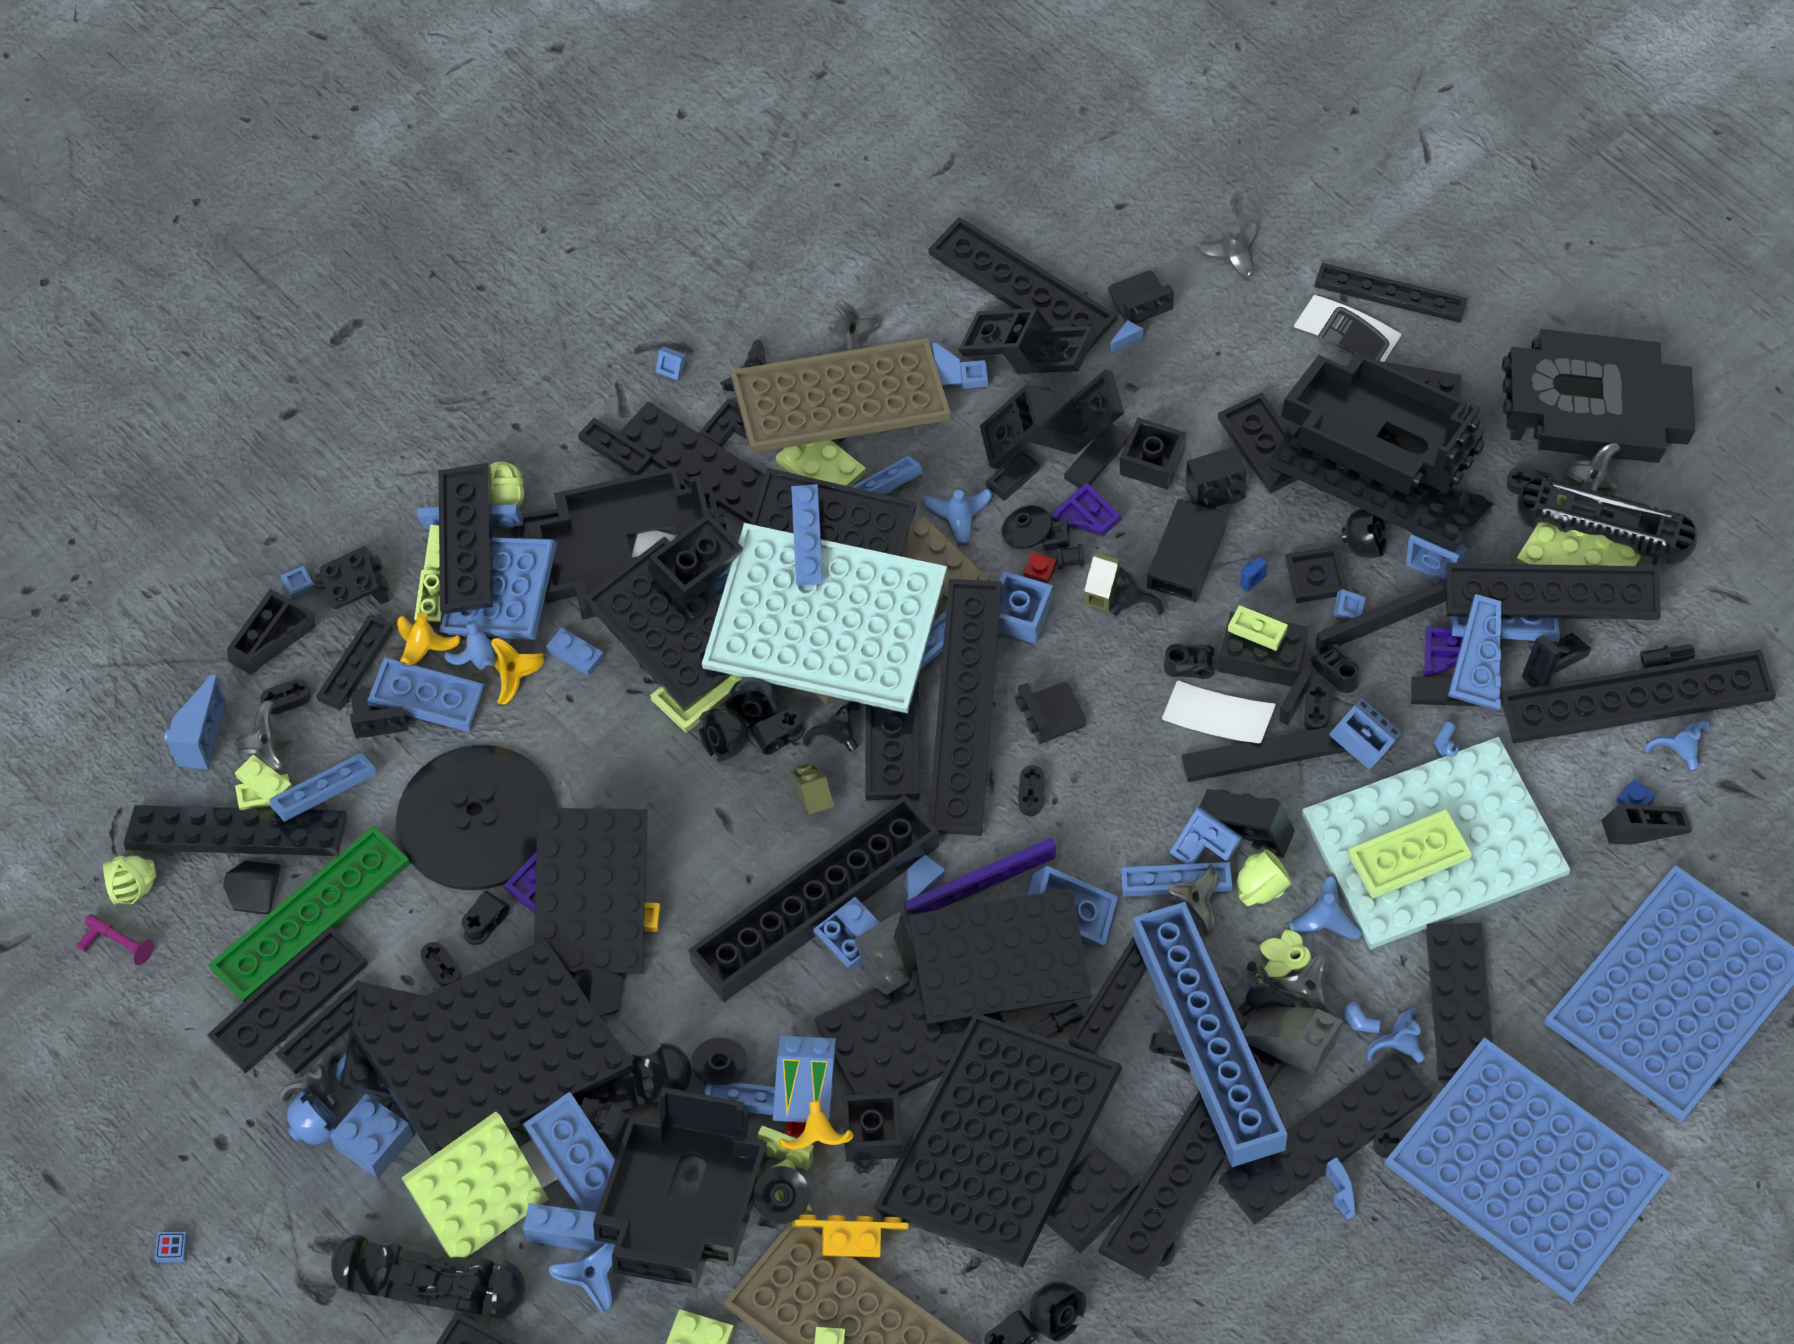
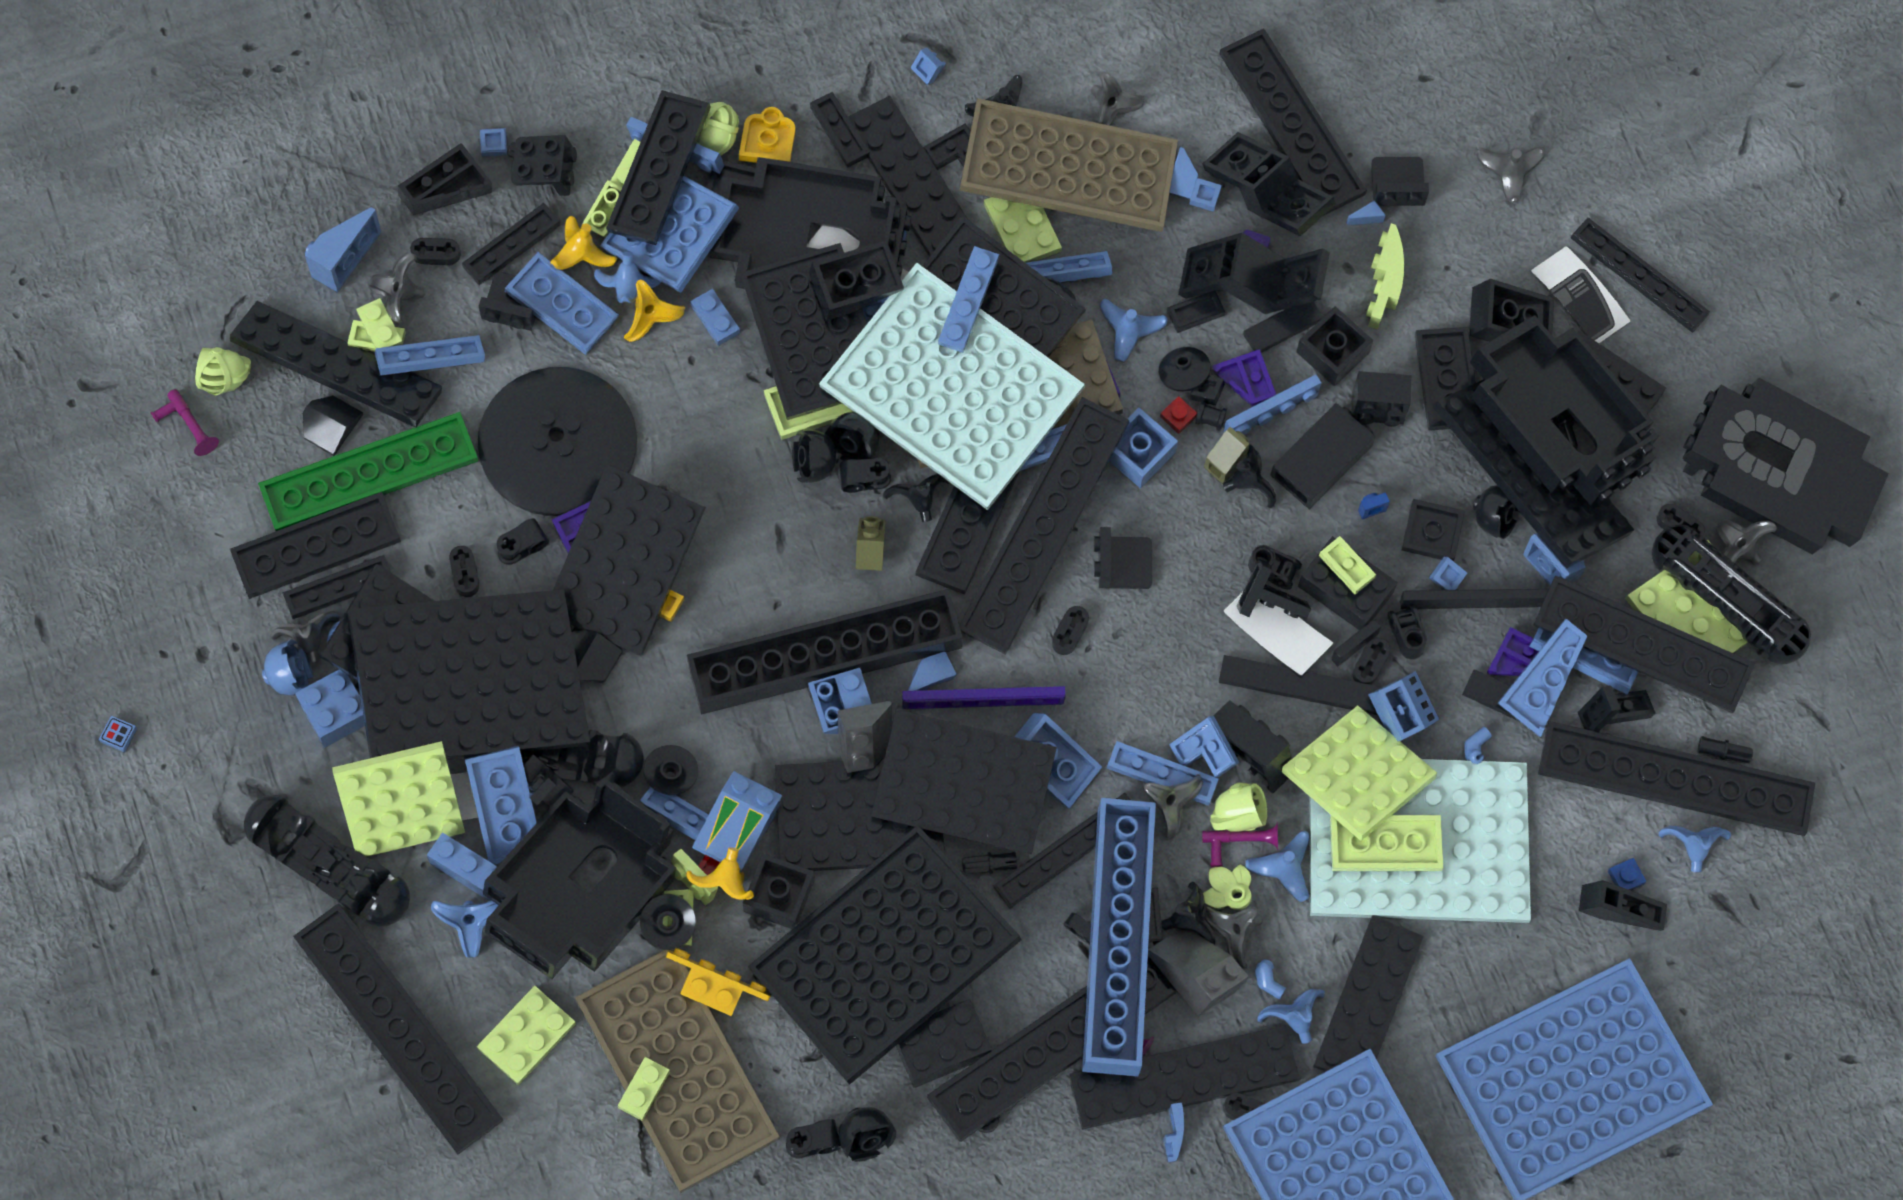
camera: 15 degrees right, 10 degrees up
(549, 476) = (767, 136): none -> yellow plate
(1126, 521) = (1282, 402): none -> medium blue plate
(1171, 376) = (1389, 273): none -> yellowish green slope
(1184, 683) = (1269, 596): none -> black bracket
(1253, 914) = (1226, 836): none -> magenta piece
(1283, 362) = (1501, 306): none -> black slope
(1354, 803) = (1359, 772): none -> yellowish green plate

